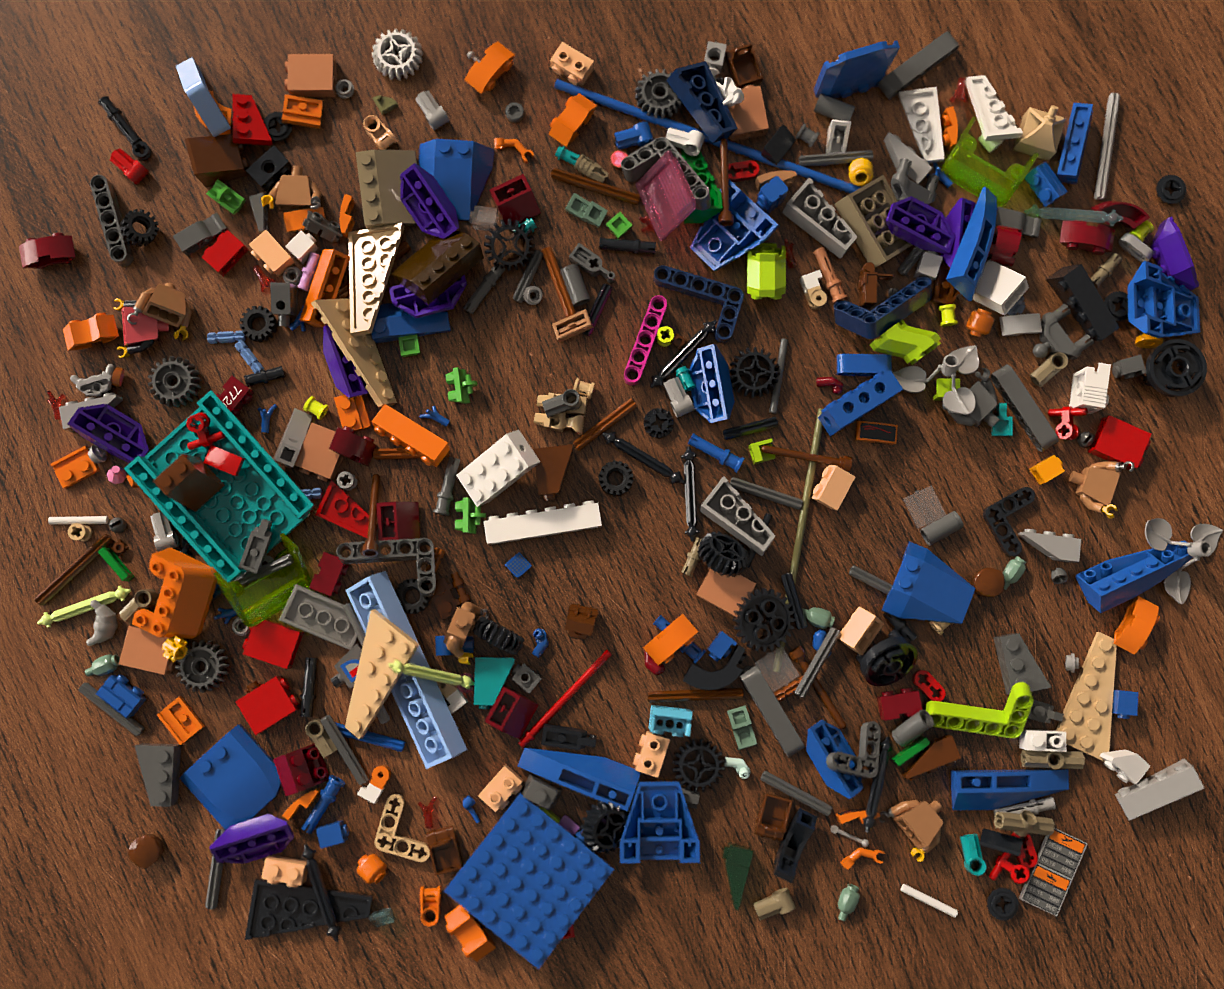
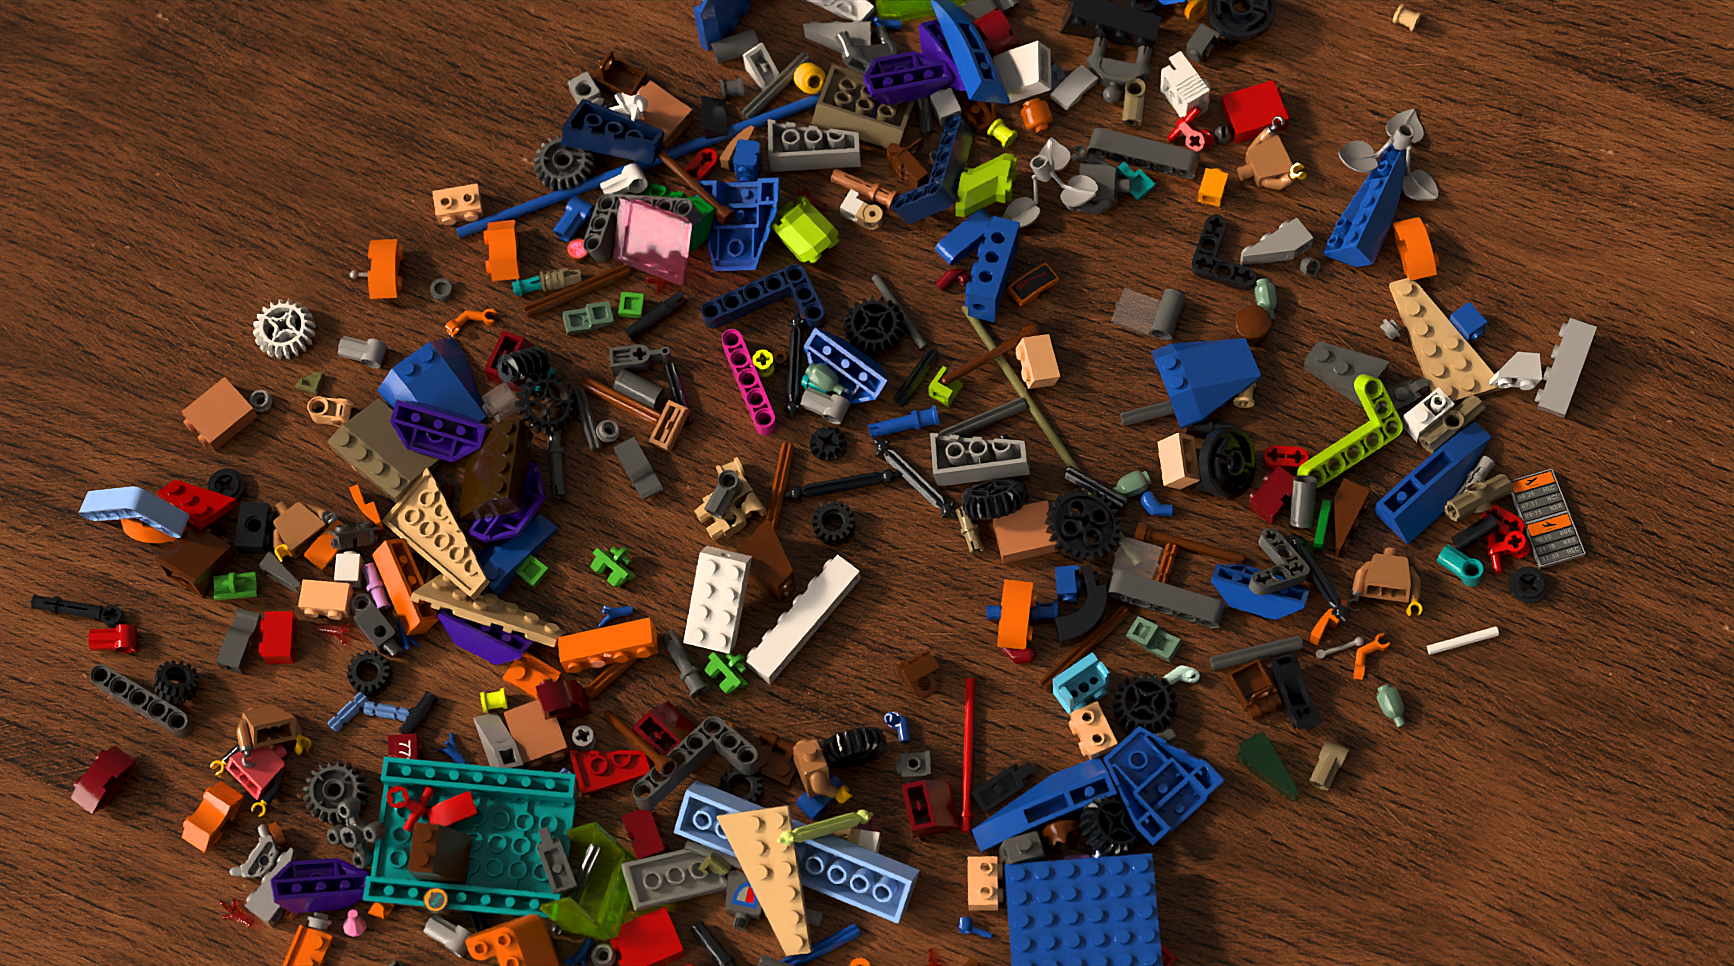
camera: 30 degrees left, 15 degrees down
(160, 420) = (356, 833): none -> dark grey gear
(163, 509) = (436, 900): none -> dark grey tile
(302, 111) = (239, 452): orange plate -> none
(351, 631) = (715, 864): none -> olive tile
(490, 678) = (882, 795): teal slope -> none
(514, 206) = (523, 364): none -> black piece
(518, 565) = (814, 677): blue slope -> none
(529, 337) = (638, 468): none -> dark grey piece
(573, 801) = (1061, 834): none -> reddish brown hair
(691, 380) = (824, 378): none -> sand green plant
(817, 662) = (1166, 520): dark grey axle -> none
(944, 385) = (1053, 194): lime panel -> none

